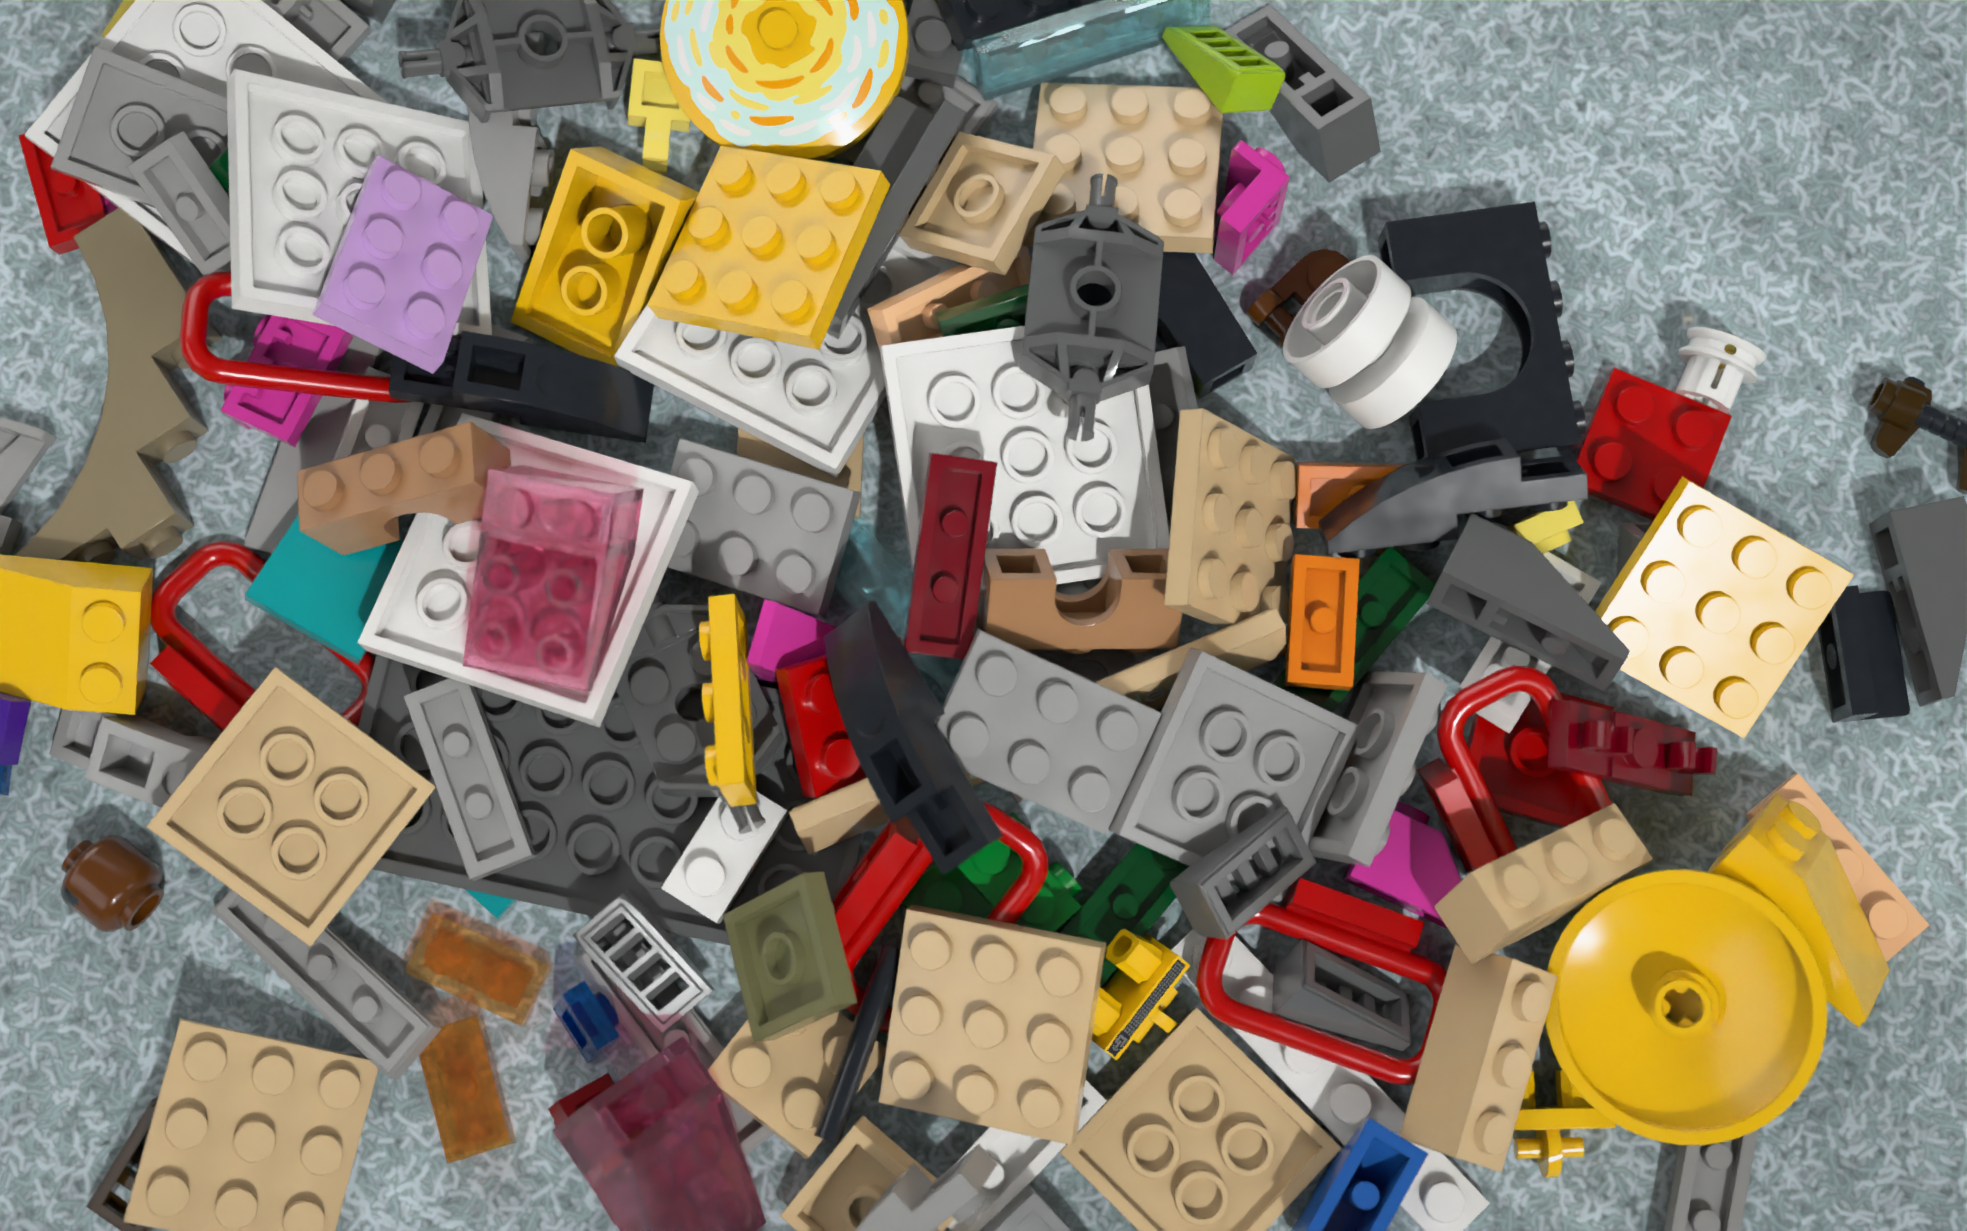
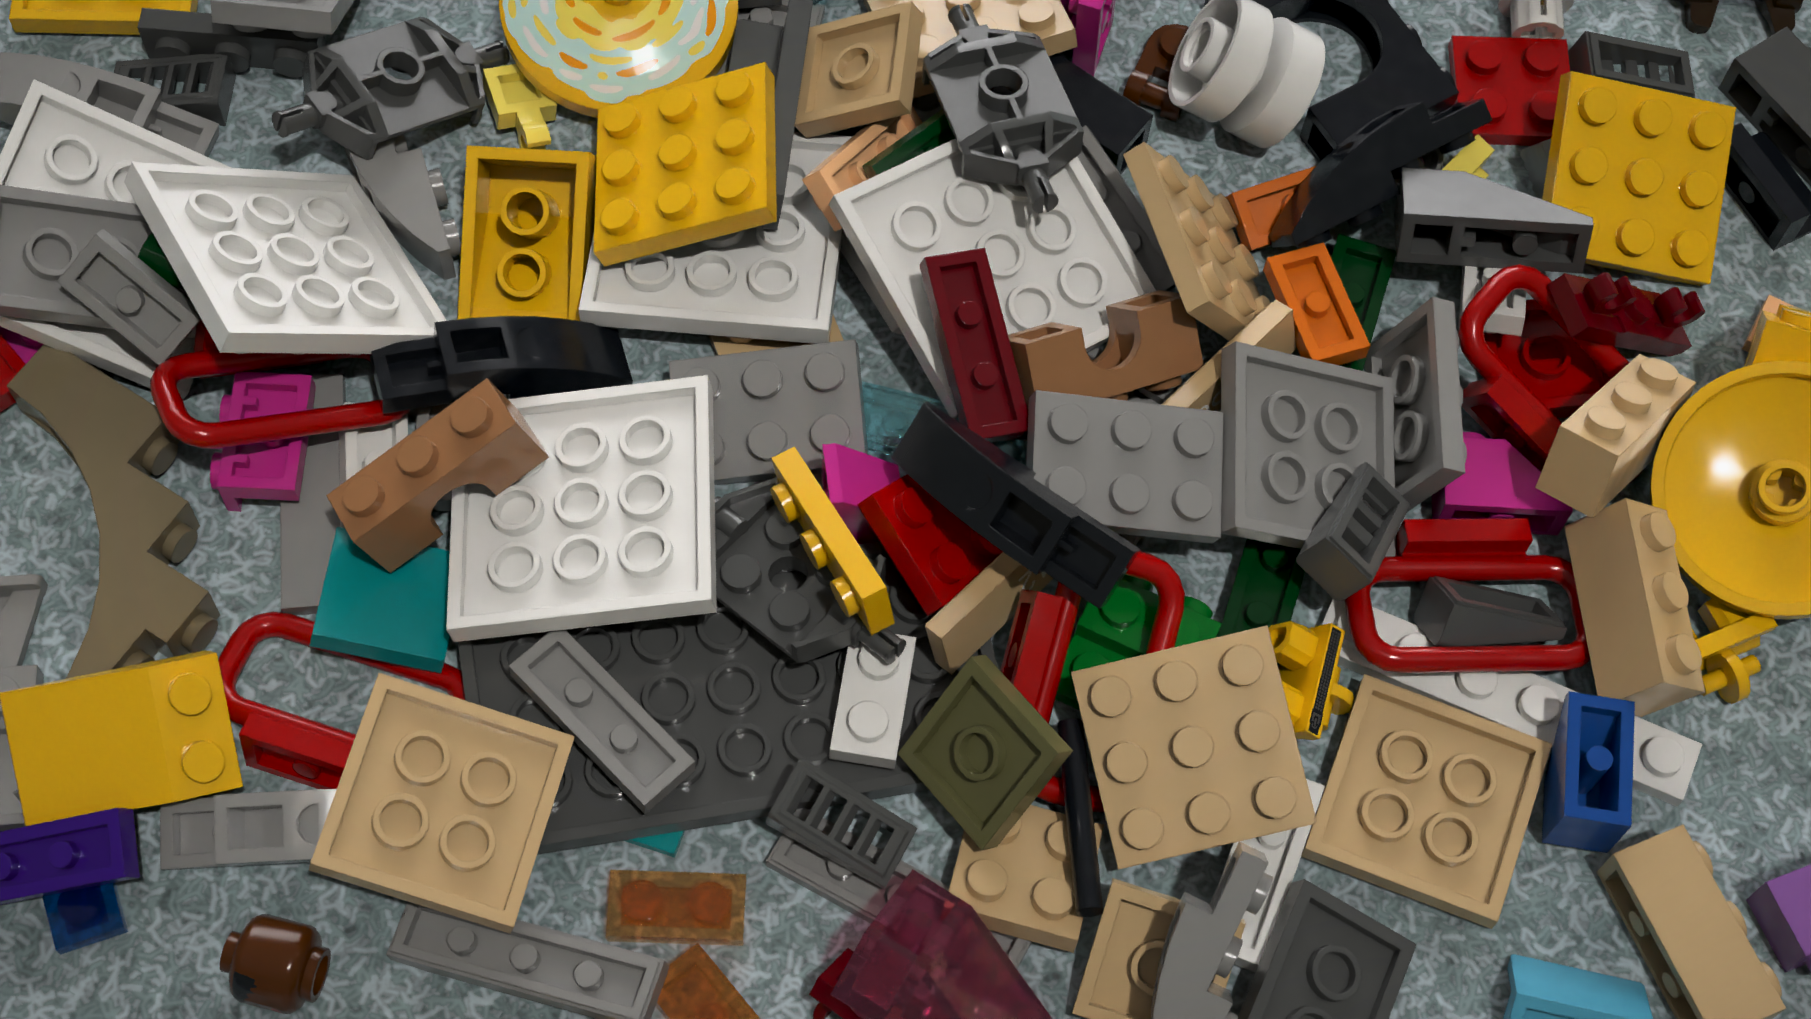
camera: 30 degrees left, 15 degrees down
(404, 265) = (355, 285): lavender plate -> none
(549, 574) = (614, 489): clear pink slope -> none
(588, 1020) = (806, 908): clear blue plate -> none
(1732, 474) = (1597, 53): none -> dark grey slope

